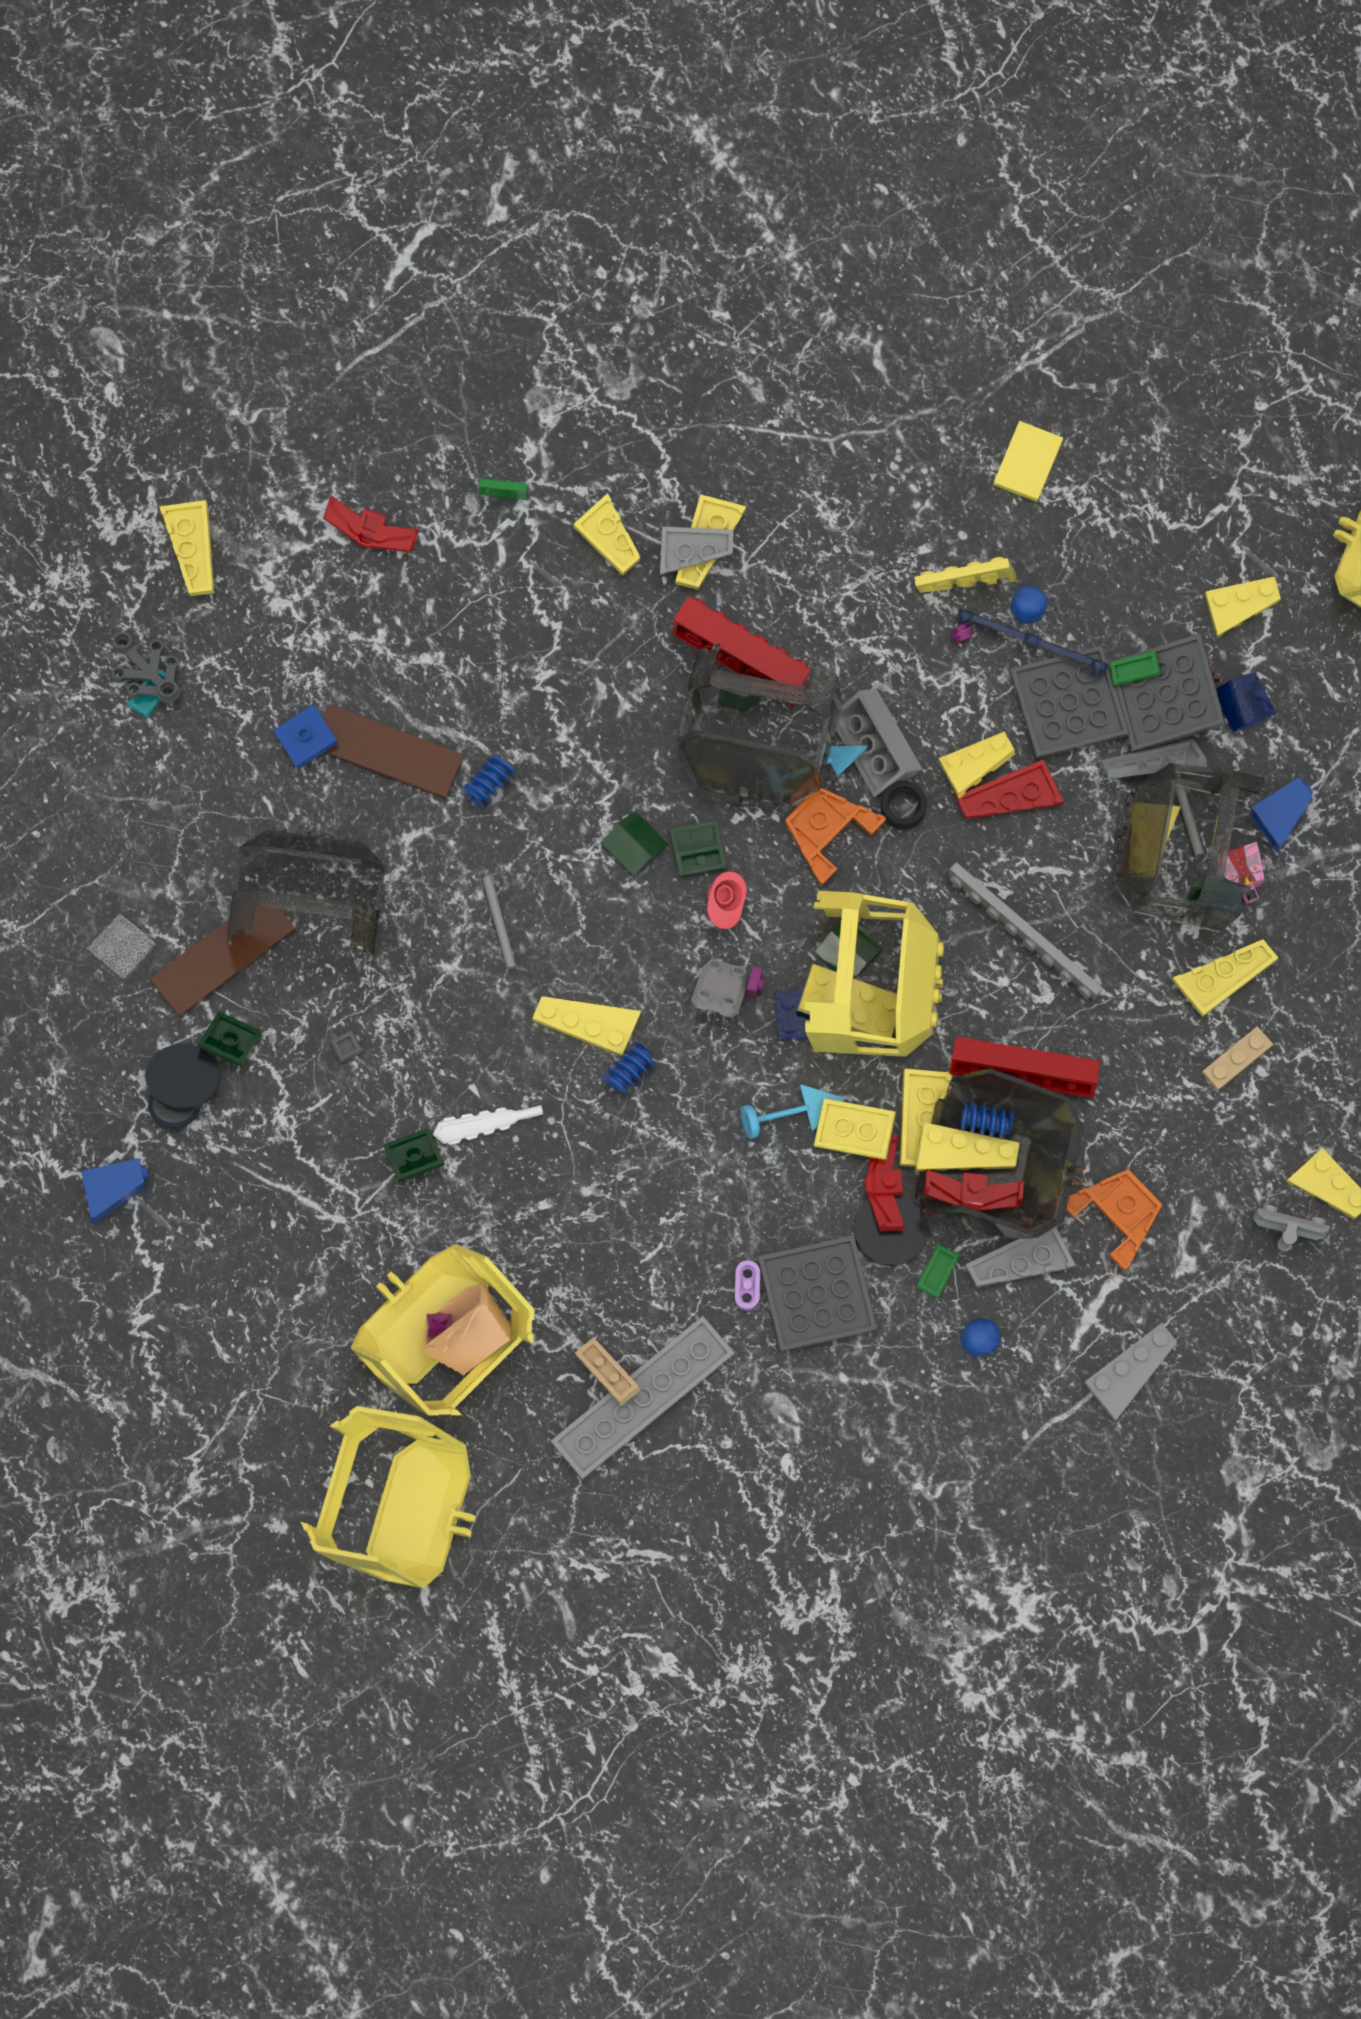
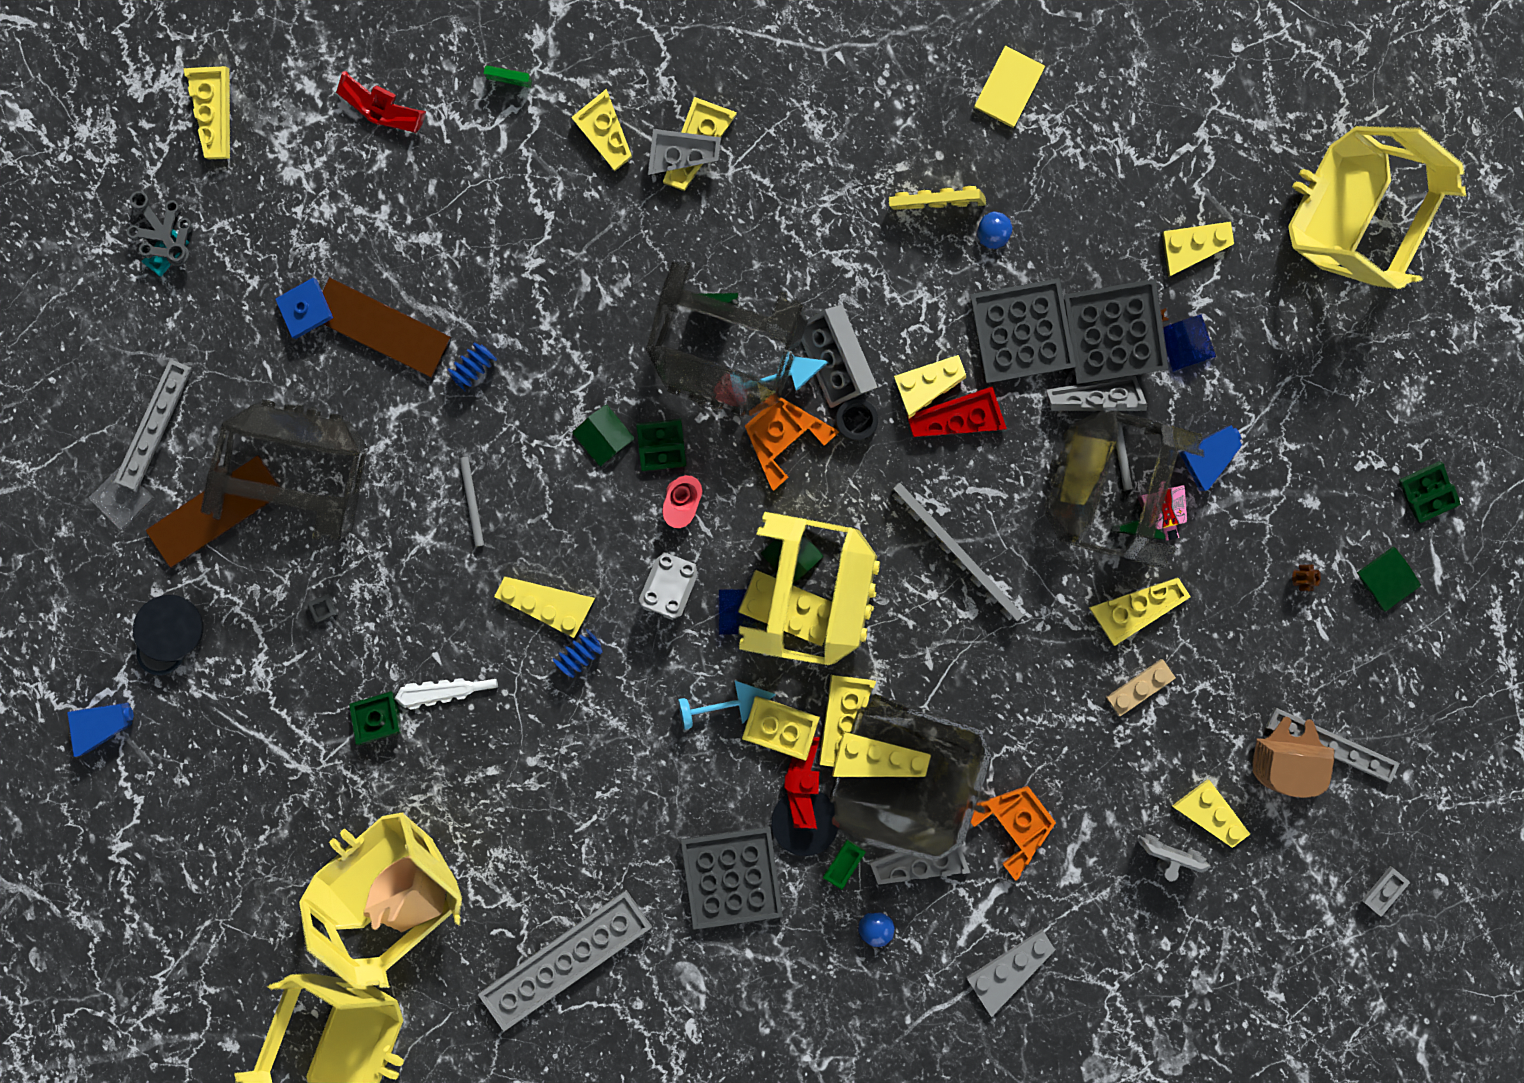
camera: 10 degrees right, 15 degrees up
(151, 869) = (153, 425): none -> light grey tile
(230, 1039) = (214, 595): dark green slope -> none
(438, 1323) = (382, 886): magenta plate -> none
(607, 1371) = (533, 937): tan plate -> none
(738, 648) = (716, 258): red brick -> none
(747, 1286) = (669, 864): lavender plate -> none
(755, 983) = (703, 580): magenta plate -> none
(962, 632) = (928, 254): magenta plate -> none
(973, 1191) = (883, 799): red plate -> none
(986, 1120) = (902, 735): blue piece -> none
(1045, 1069) = (943, 683): red brick -> none
(1098, 665) = (995, 267): dark blue piece -> none
(1135, 668) = (1089, 305): green tile -> none

